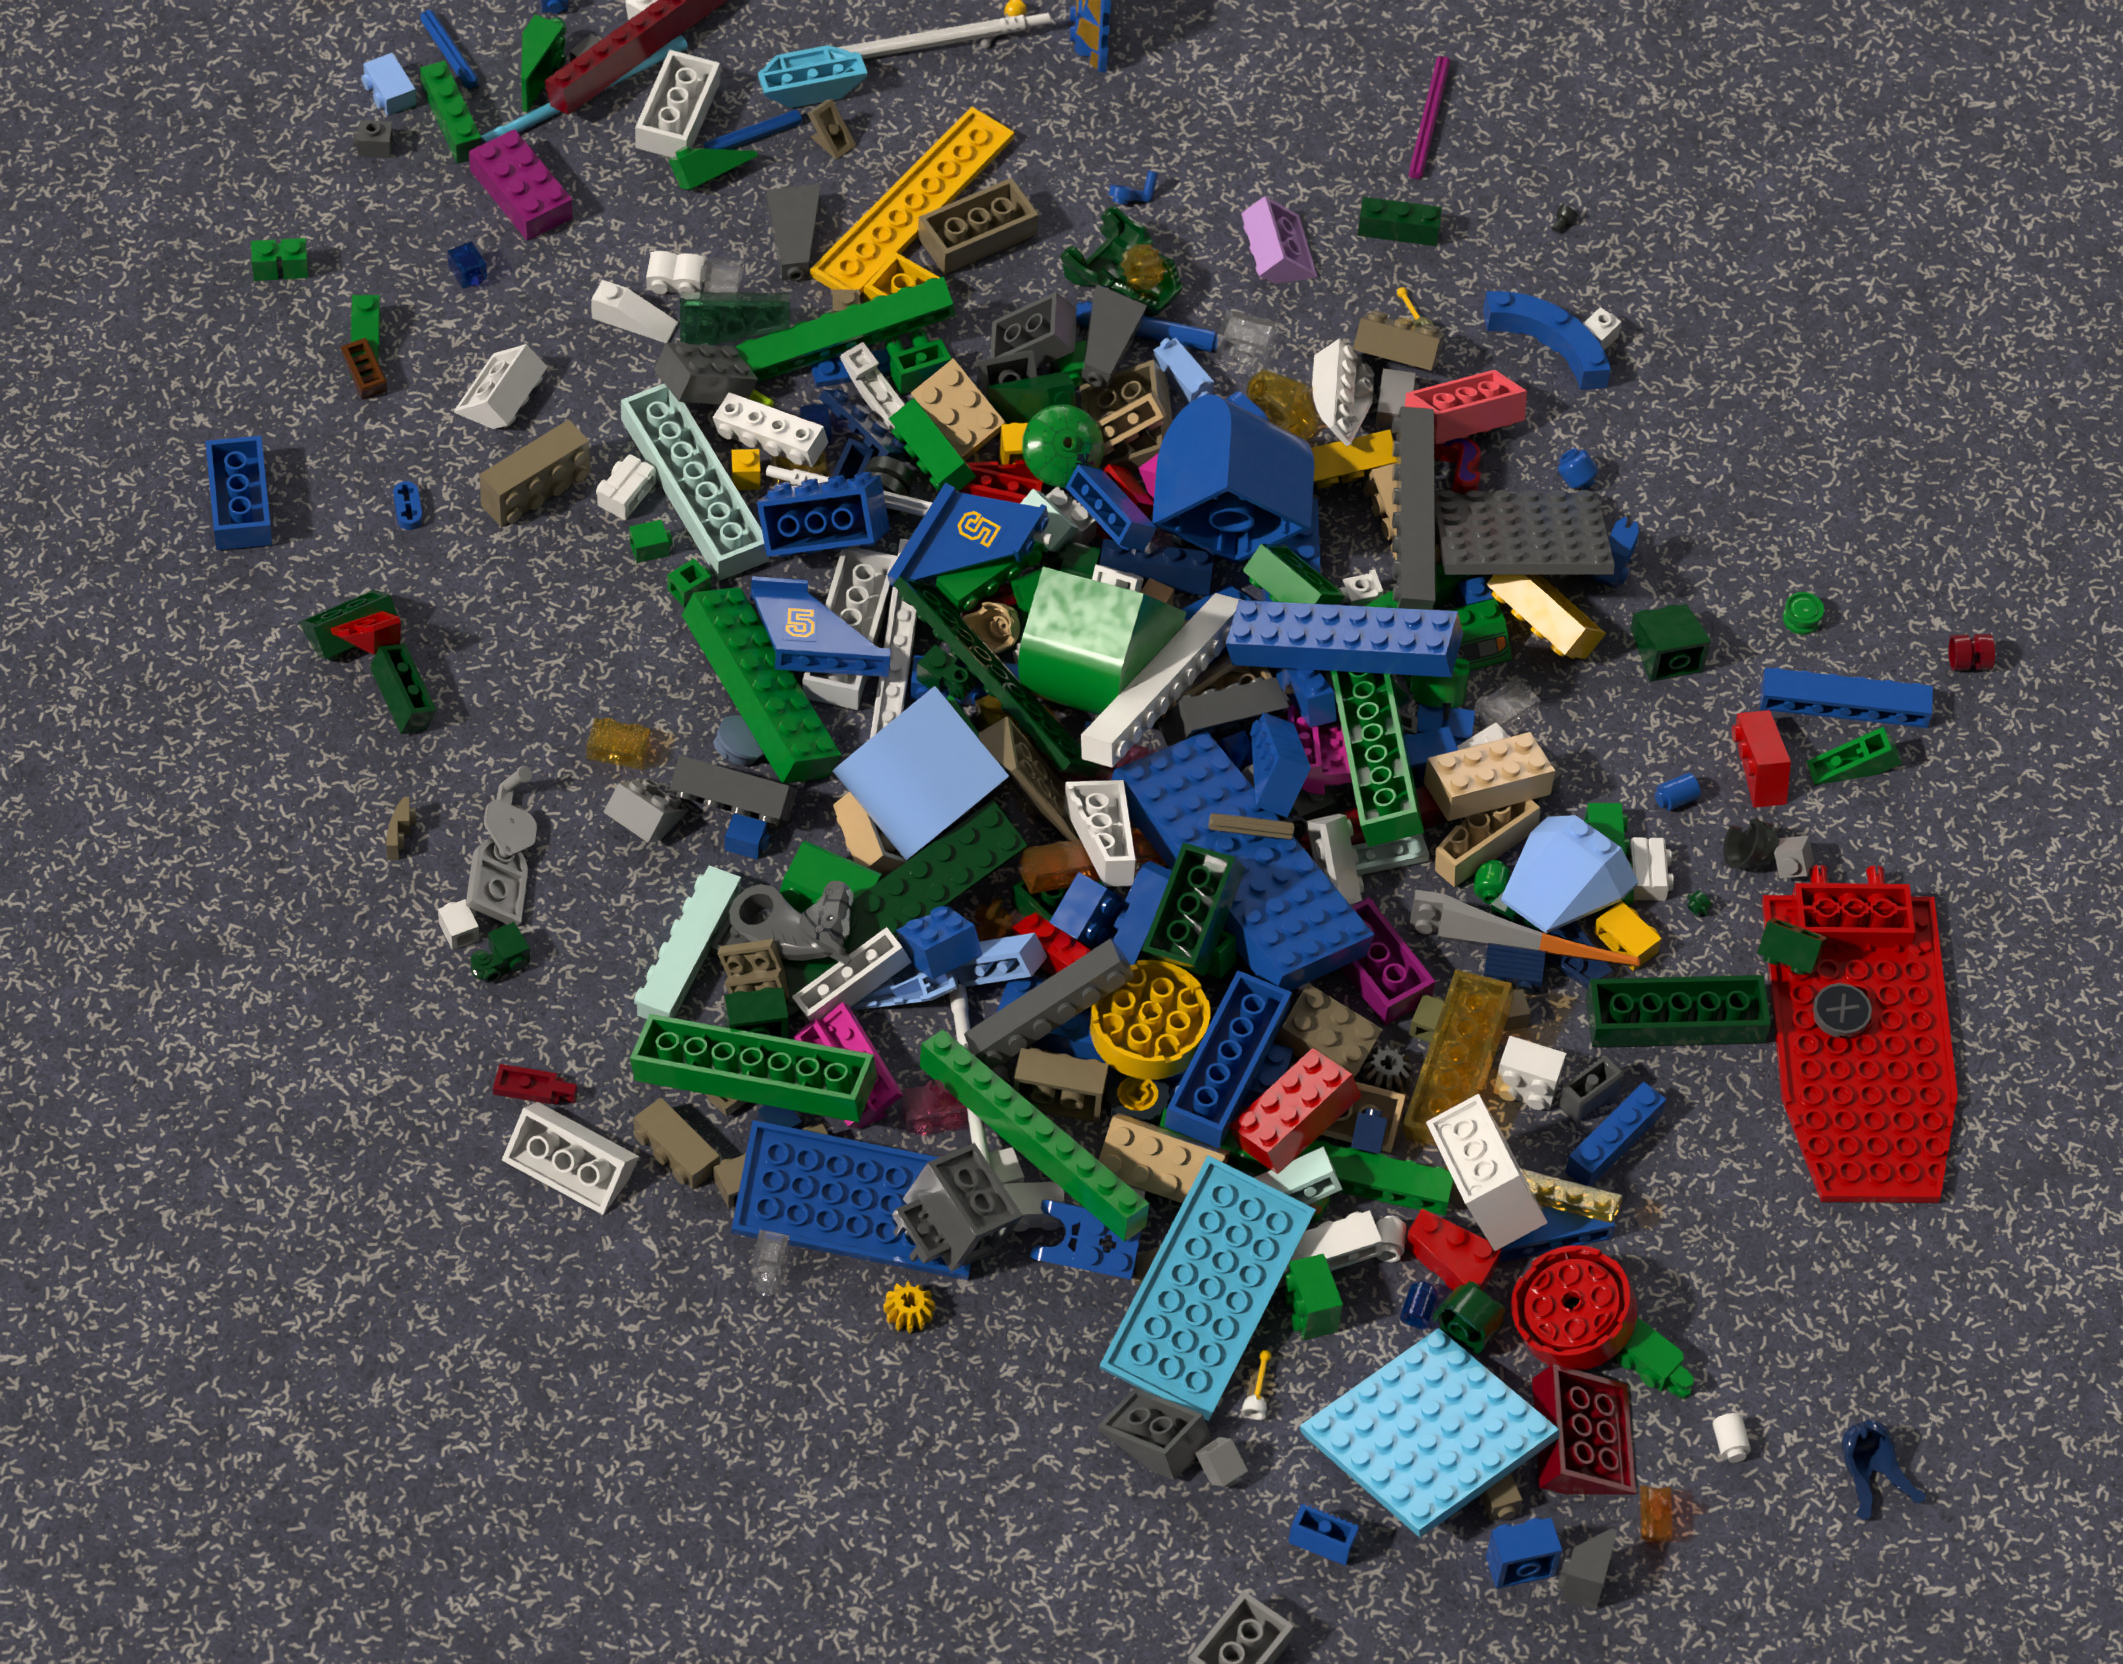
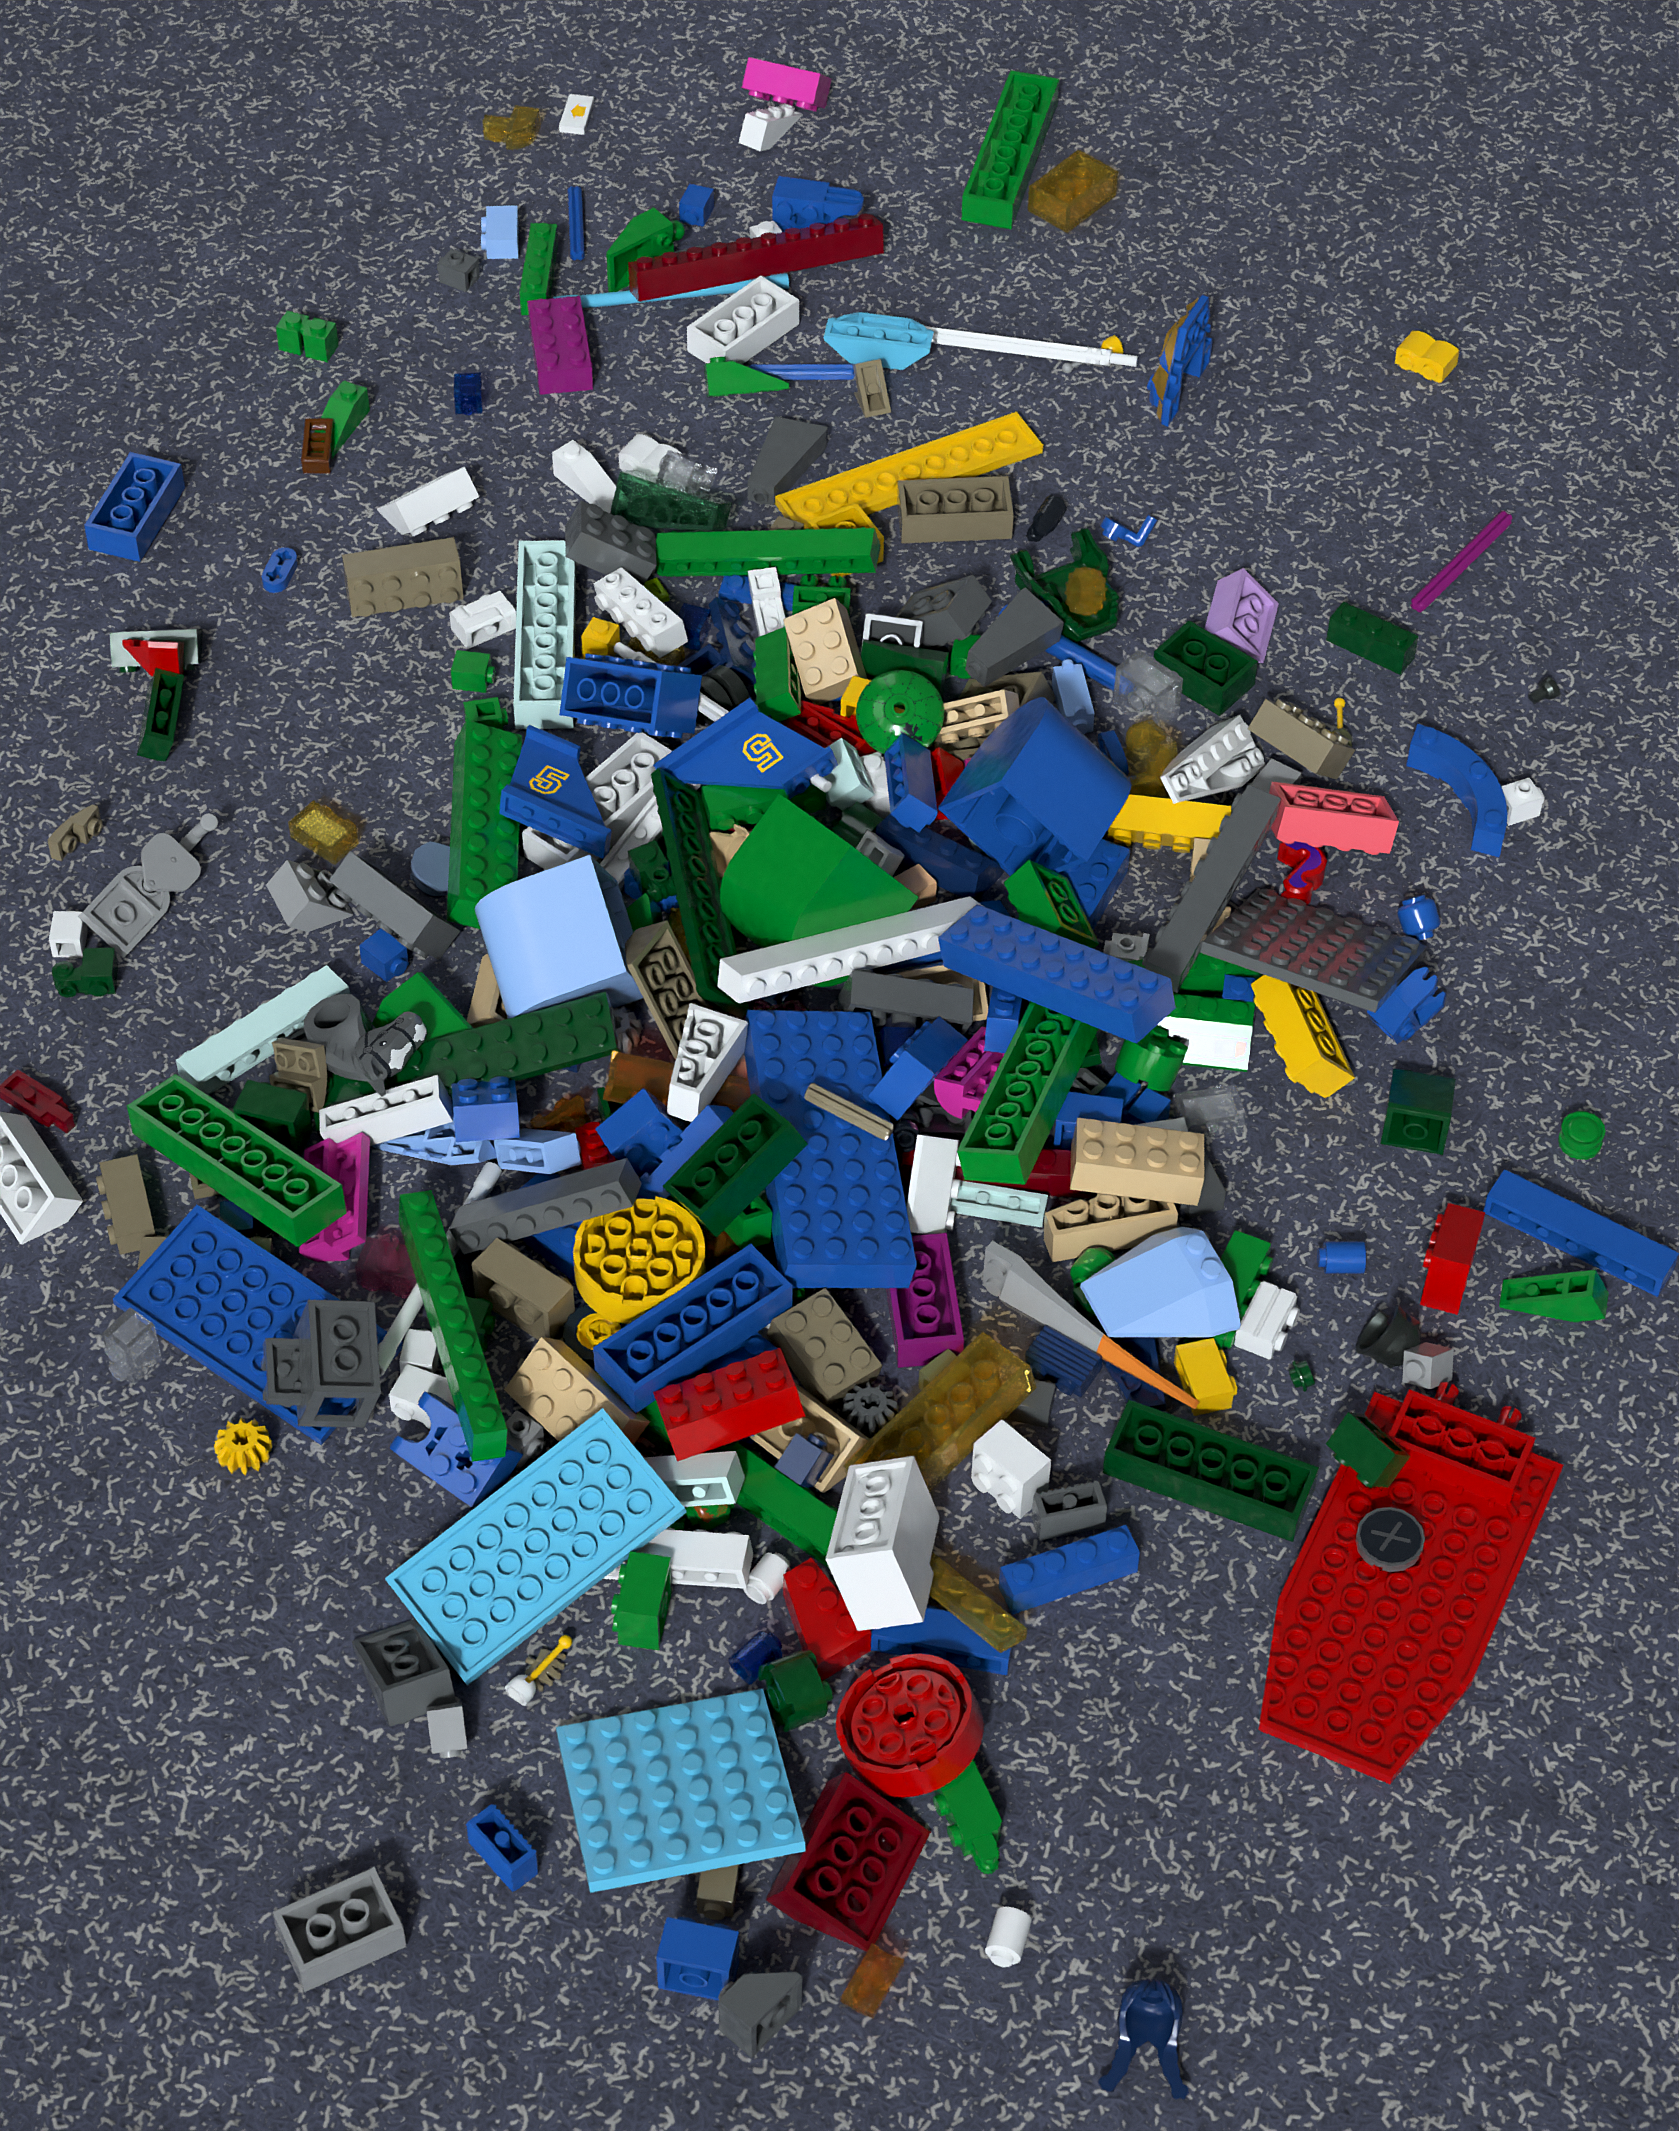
camera: 30 degrees right, 5 degrees down
(1057, 204) = (1046, 518): none -> black hinge
(1282, 298) = (1210, 668): none -> dark green brick

